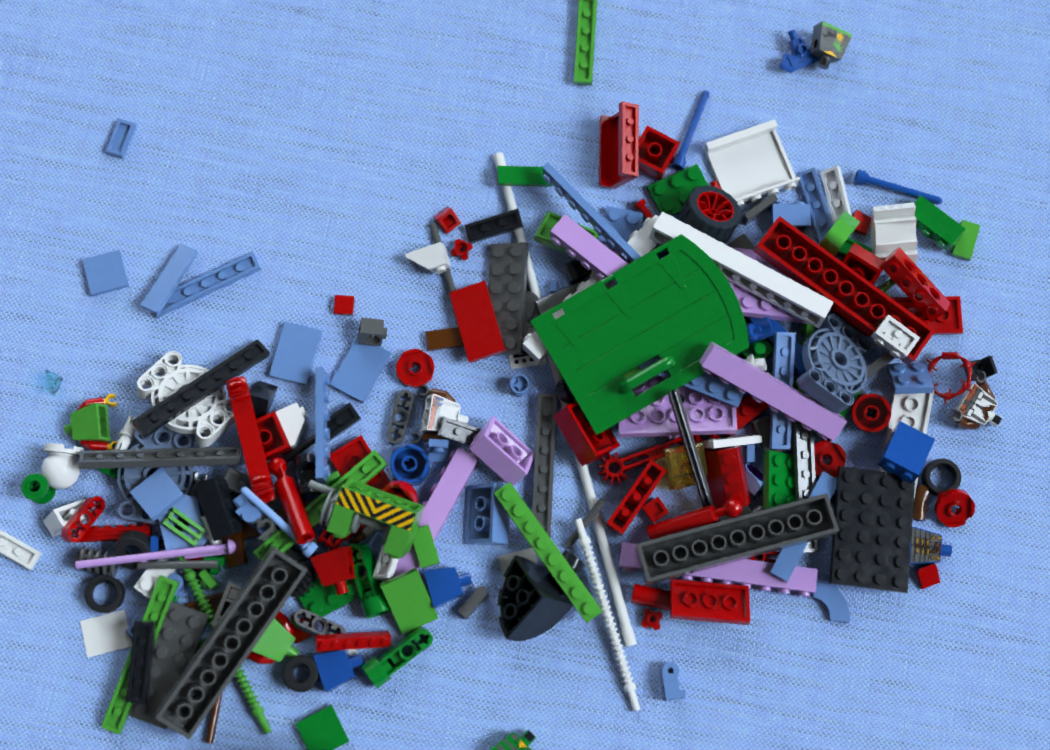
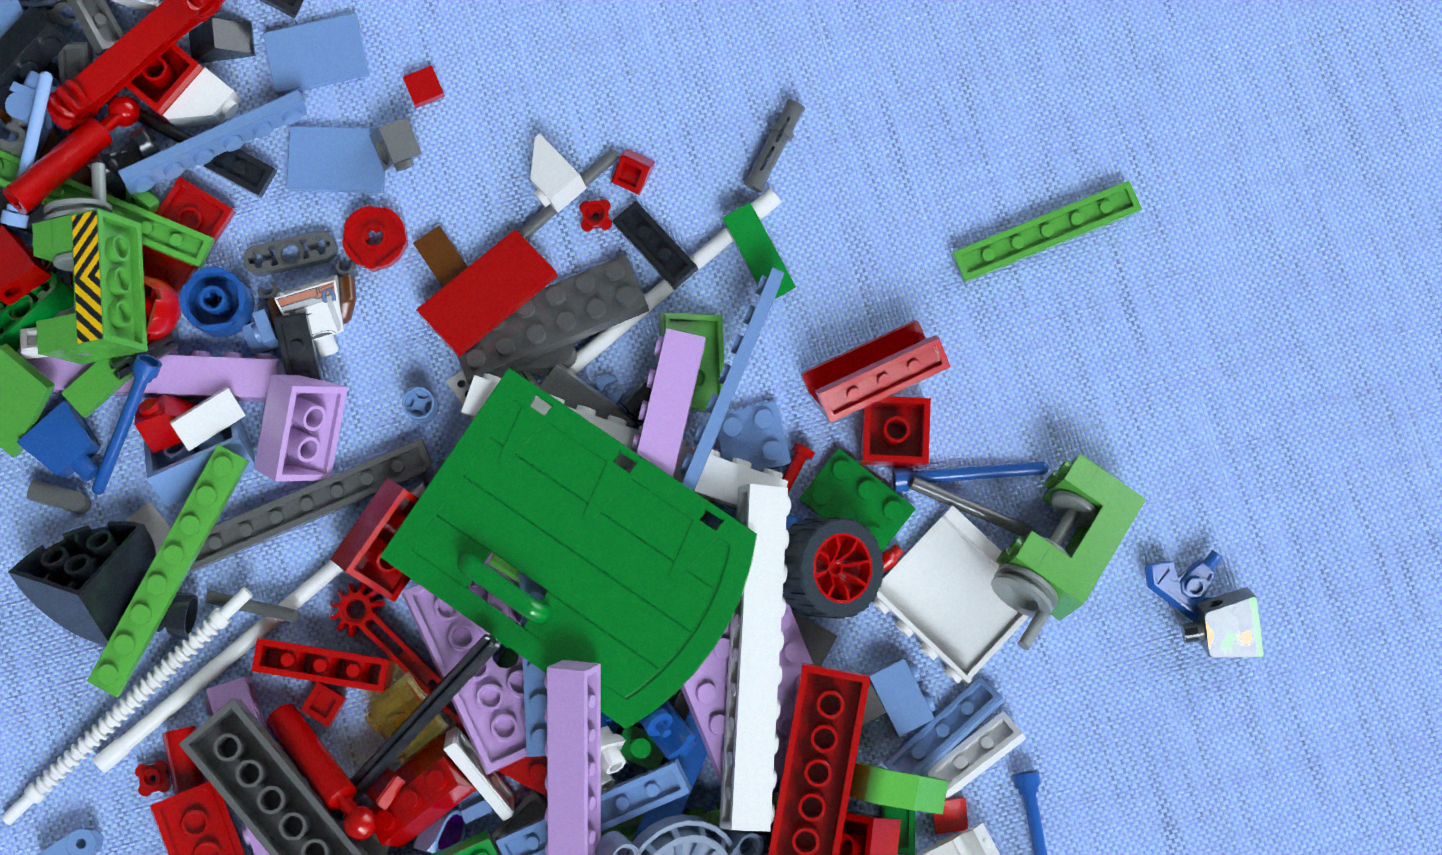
camera: 70 degrees right, 5 degrees up
(425, 520) = (155, 349): none -> black pin
(433, 512) = (144, 369): none -> blue piece
(464, 518) = (154, 417): none -> red slope
(466, 135) = (790, 113): none -> dark grey pin
(474, 496) = (207, 418): none -> white tile
(710, 136) = (970, 507): none -> dark grey bar
(718, 492) = (385, 788): none -> red tile
(759, 209) = (889, 642): dark grey tile -> none
(767, 101) = (1042, 576): none -> bright green piece

